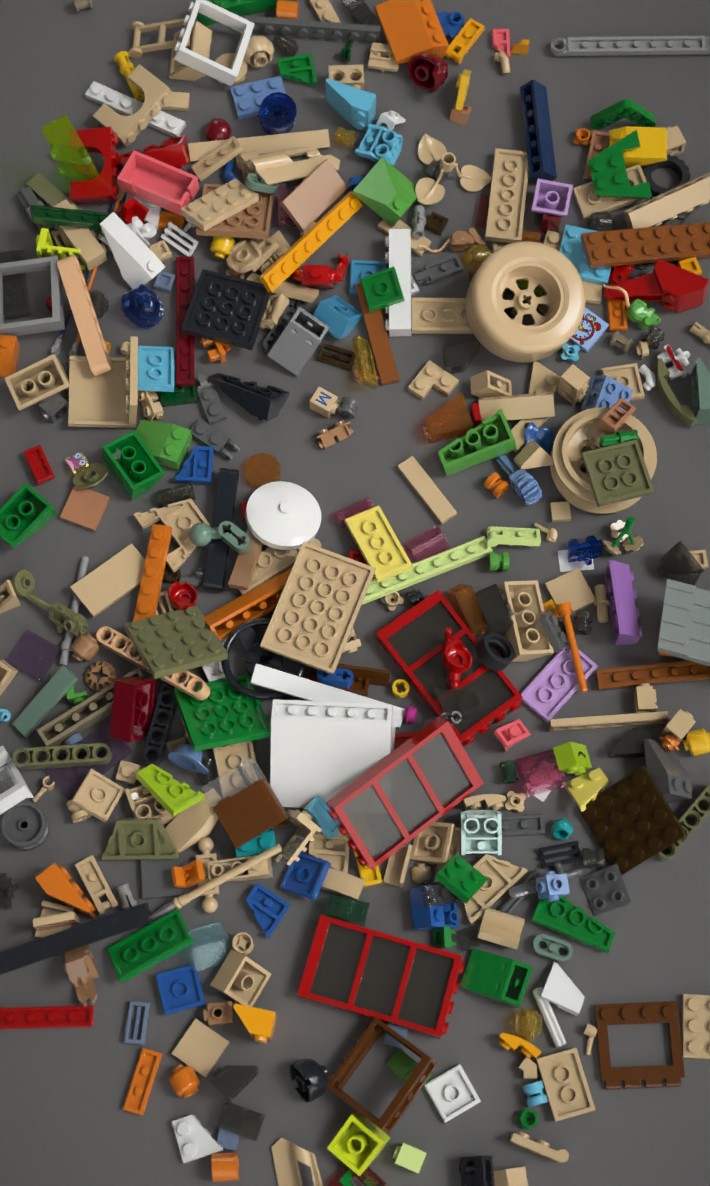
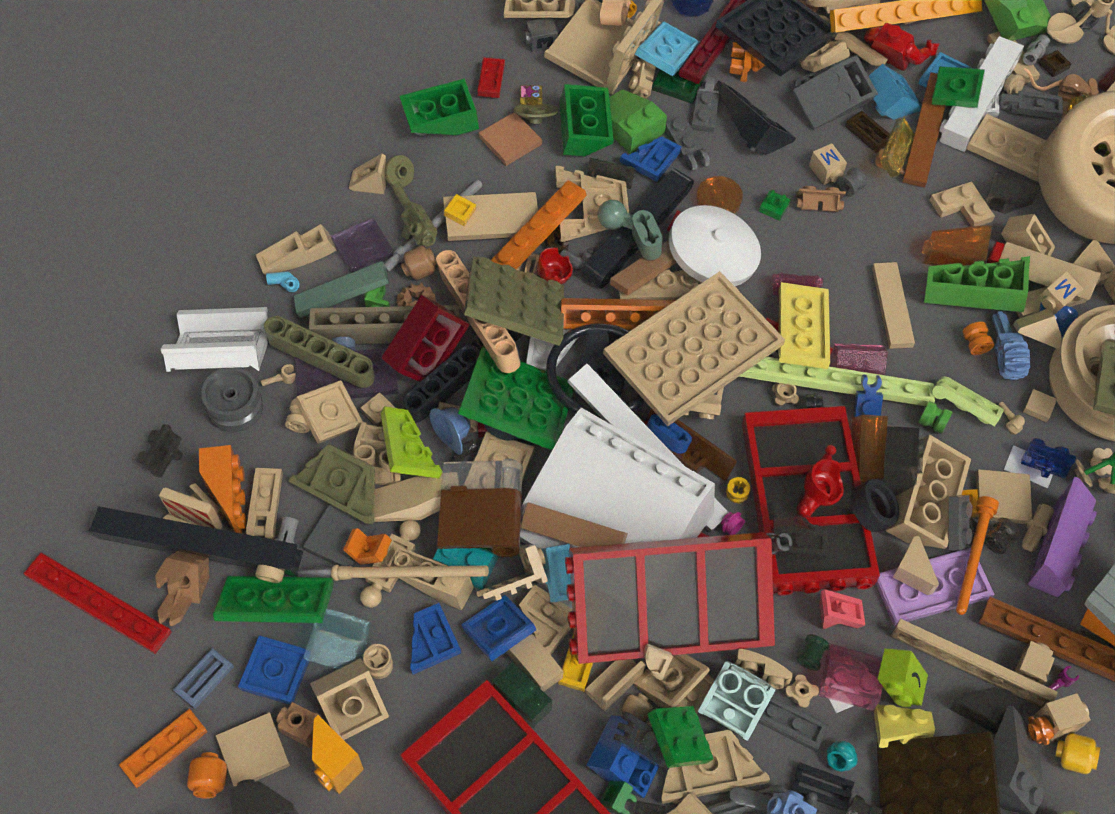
camera: 30 degrees right, 10 degrees down
(89, 590) = (460, 210): none -> yellow tile
(137, 931) = (269, 574): none -> tan tile
(304, 456) = (774, 205): none -> green tile
(314, 784) = (569, 528): none -> medium nougat tile
(417, 260) = (1014, 84): none -> tan plate
(418, 838) = (657, 660): none -> tan tile
(450, 575) = (869, 401): none -> blue plate
(534, 424) = (1060, 293): none -> tan brick
(542, 679) = (916, 569): none -> tan slope
(666, 698) = (1063, 680): none -> magenta hand

